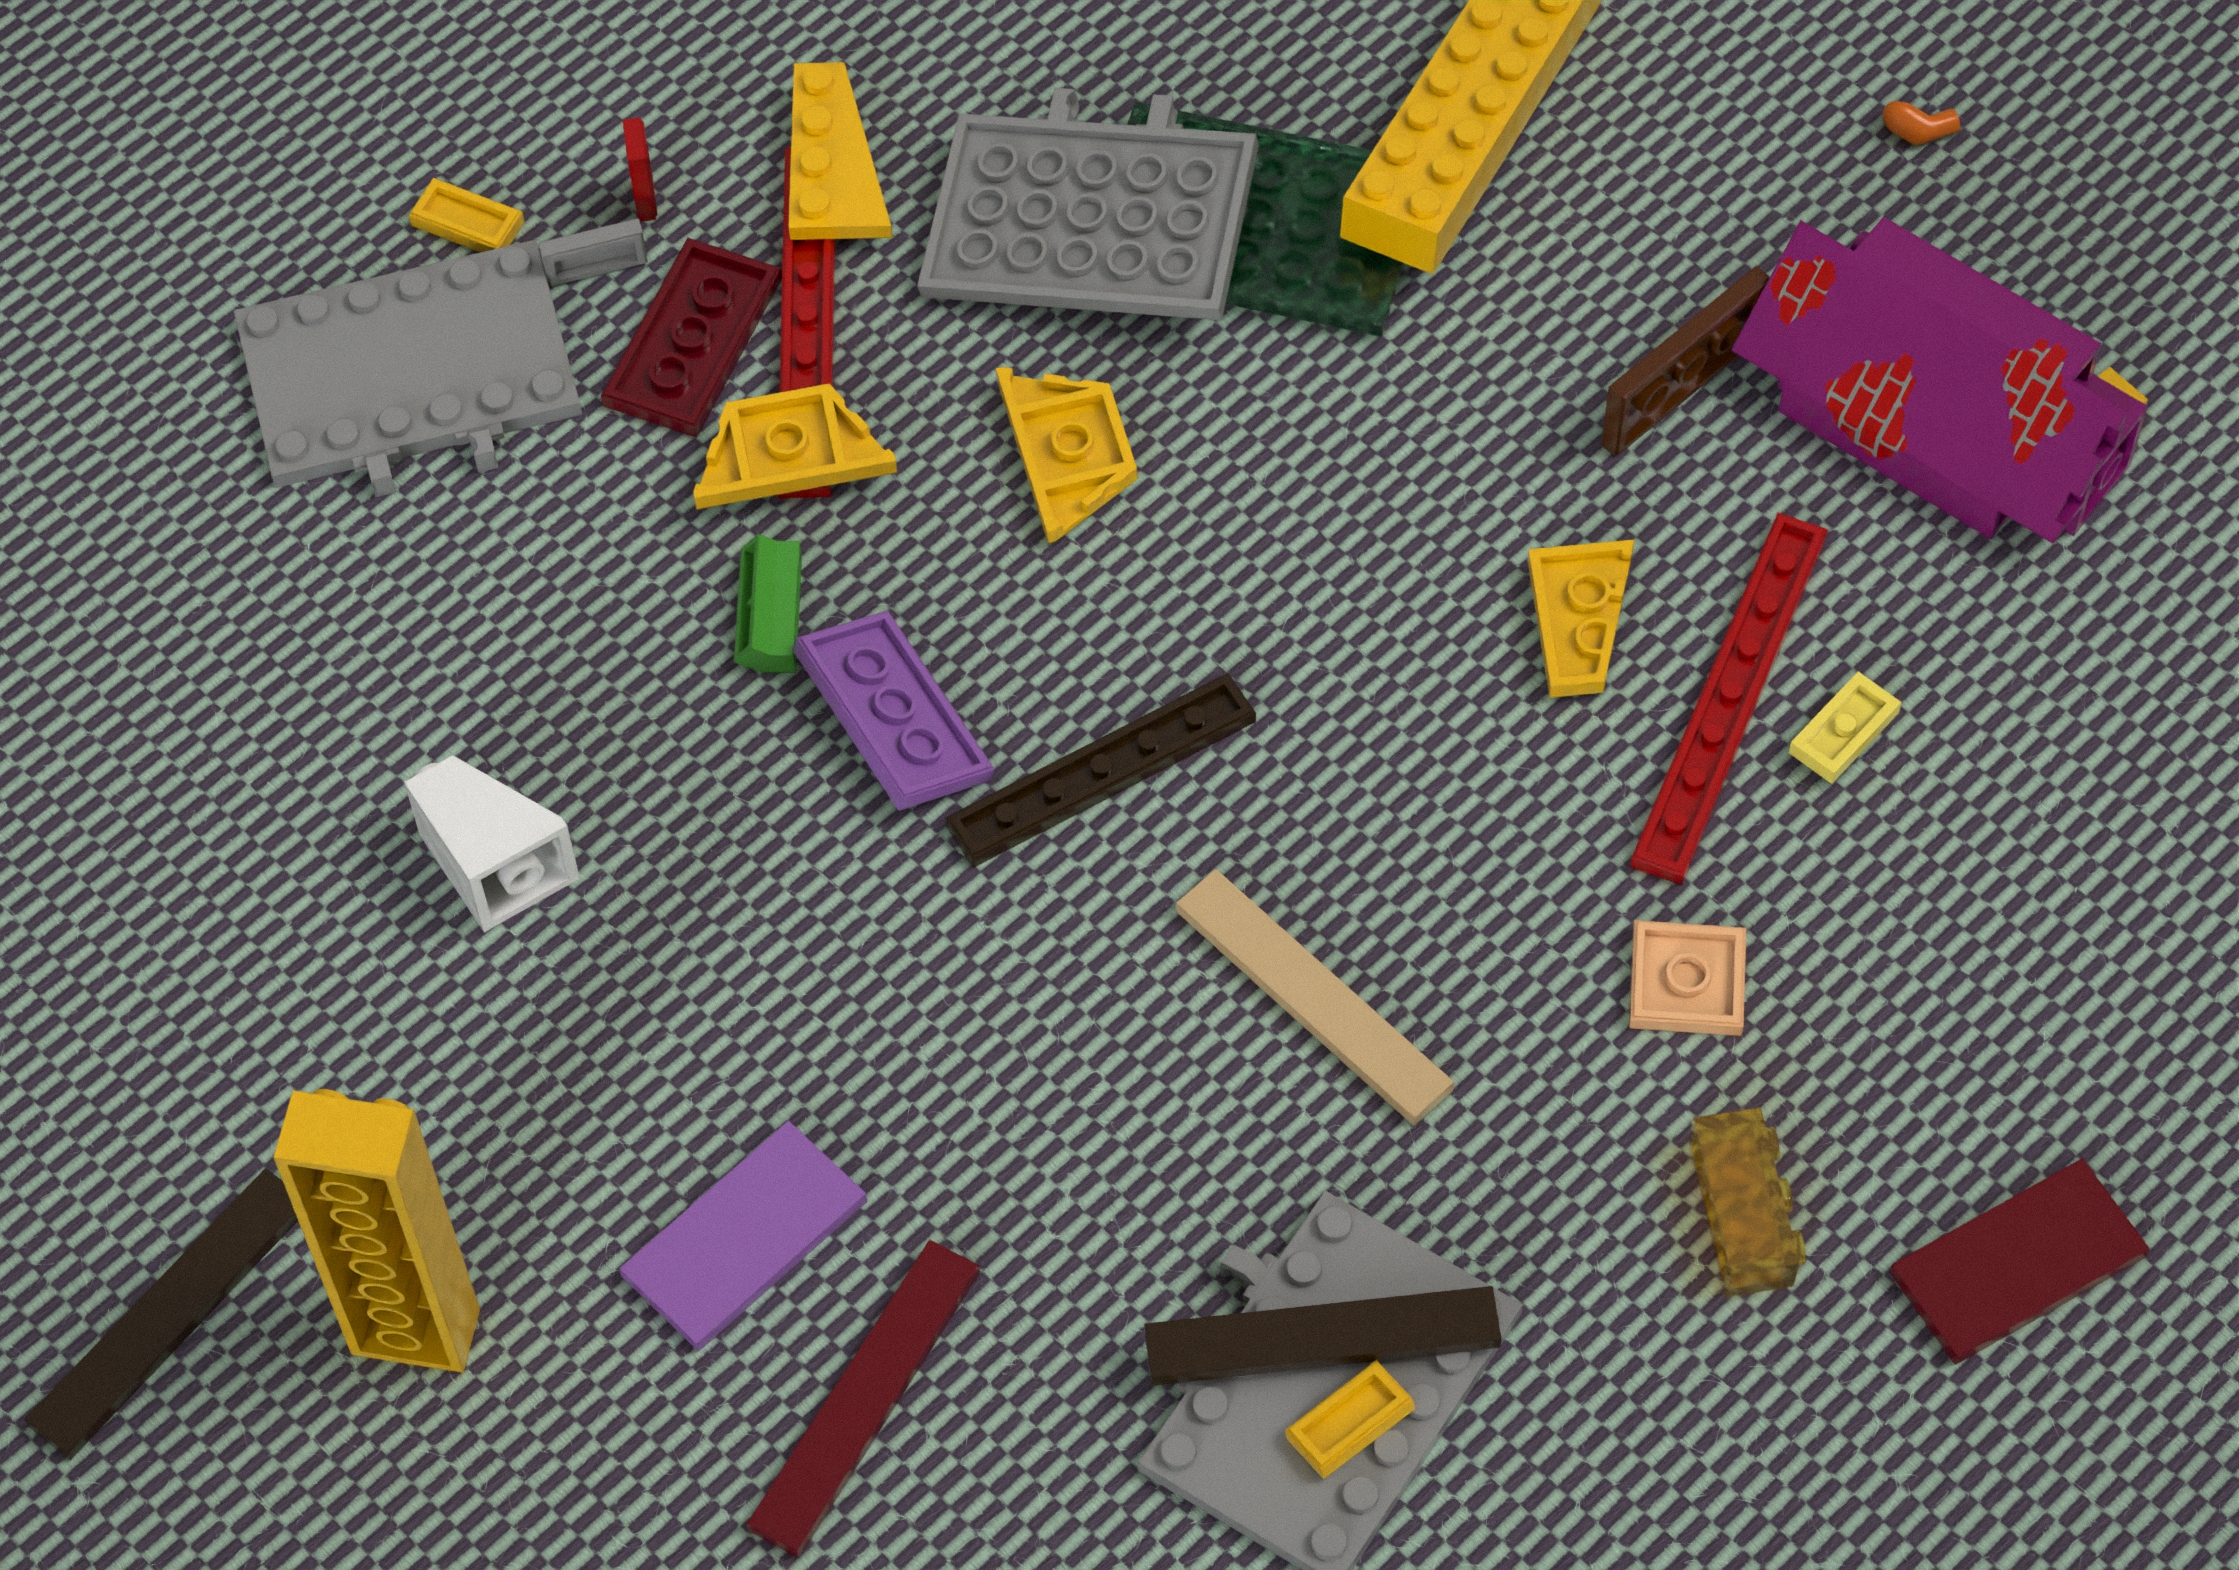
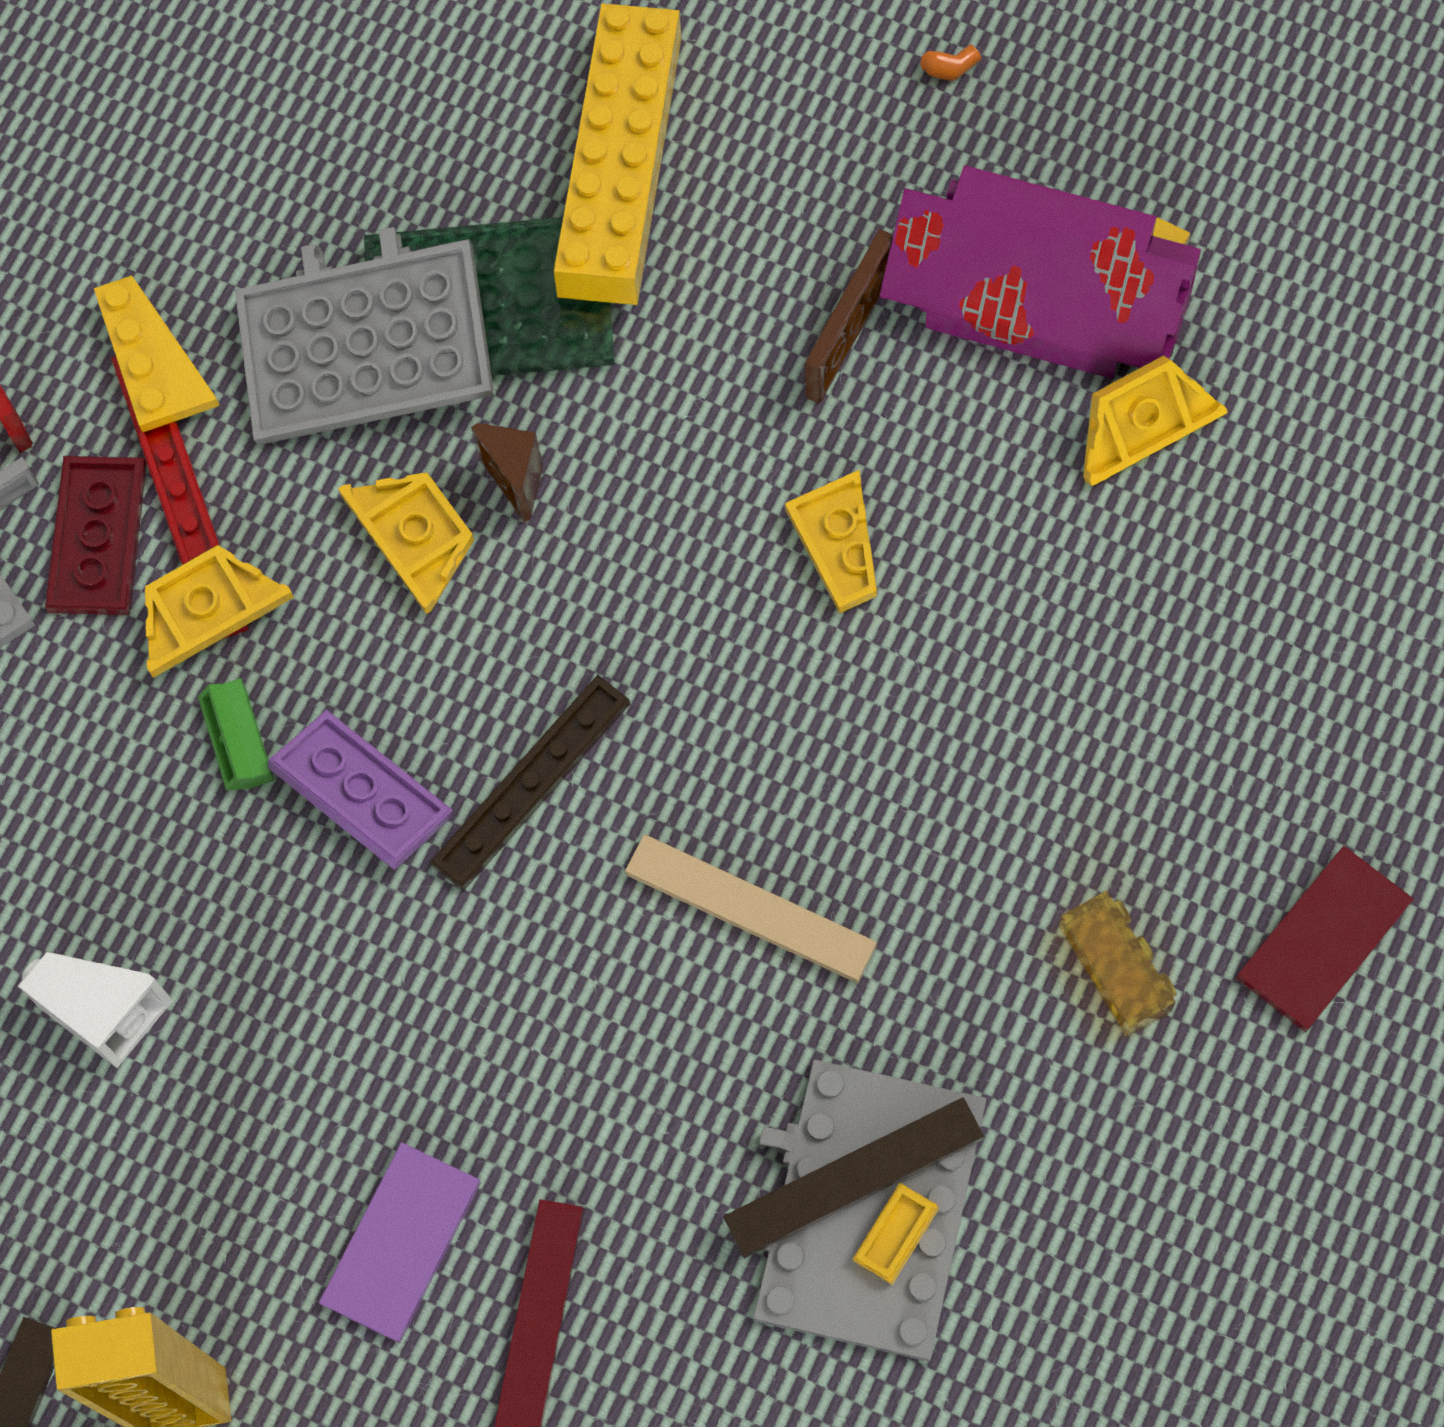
camera: 15 degrees left, 10 degrees up
(1215, 401) = (512, 462): none -> reddish brown slope
(1687, 978) = (1015, 800): light nougat tile -> none
(1728, 699) = (969, 570): red tile -> none
(1844, 727) = (1061, 566): light yellow plate -> none
(2010, 584) = (1143, 416): none -> yellow wing

